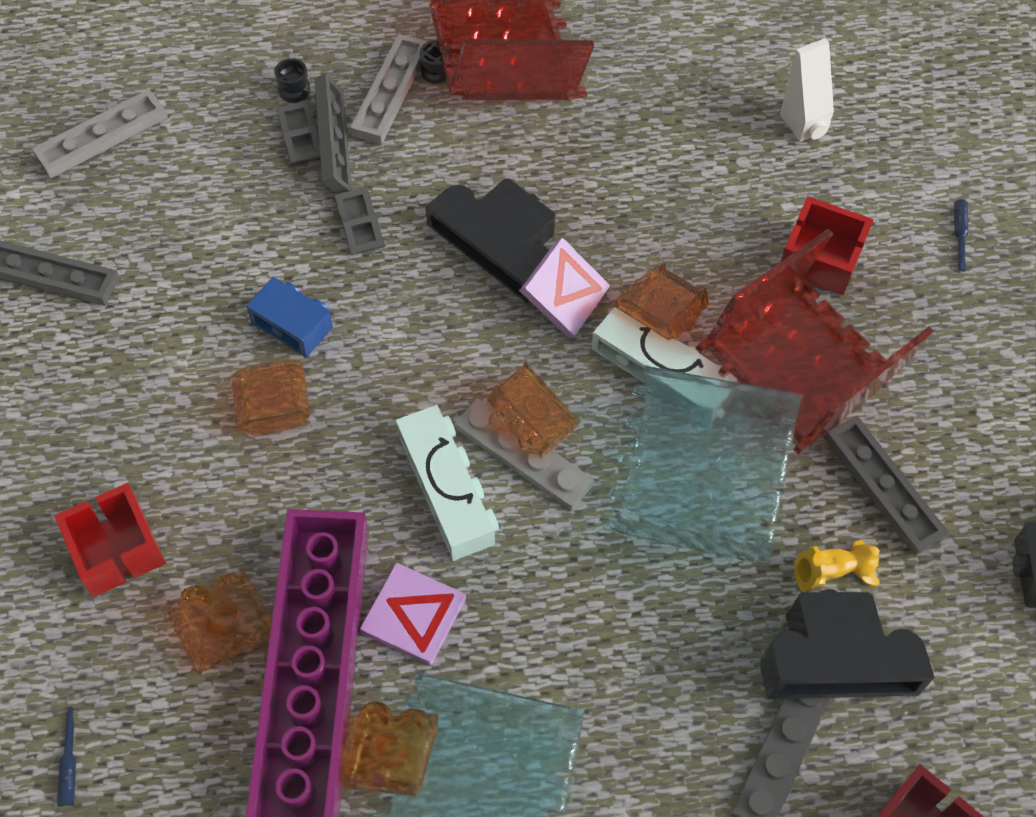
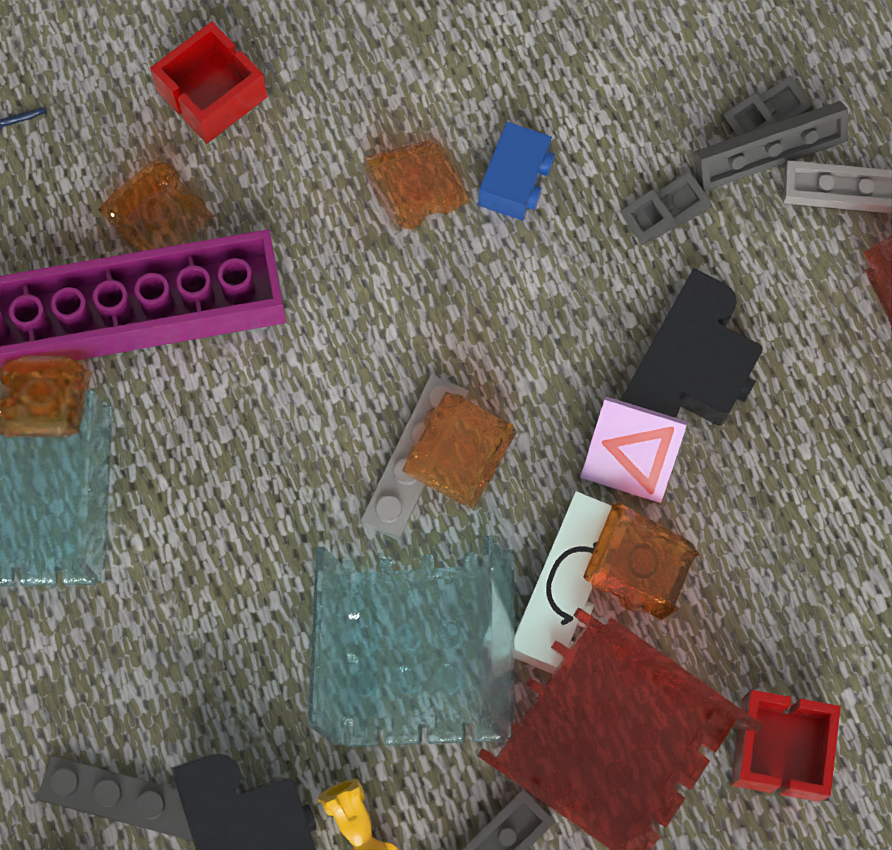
camera: 75 degrees right, 10 degrees up
(292, 80) = (835, 79): black wheel -> none
(413, 614) = (203, 390): lavender tile -> none
(446, 482) = (355, 381): light aqua brick -> none

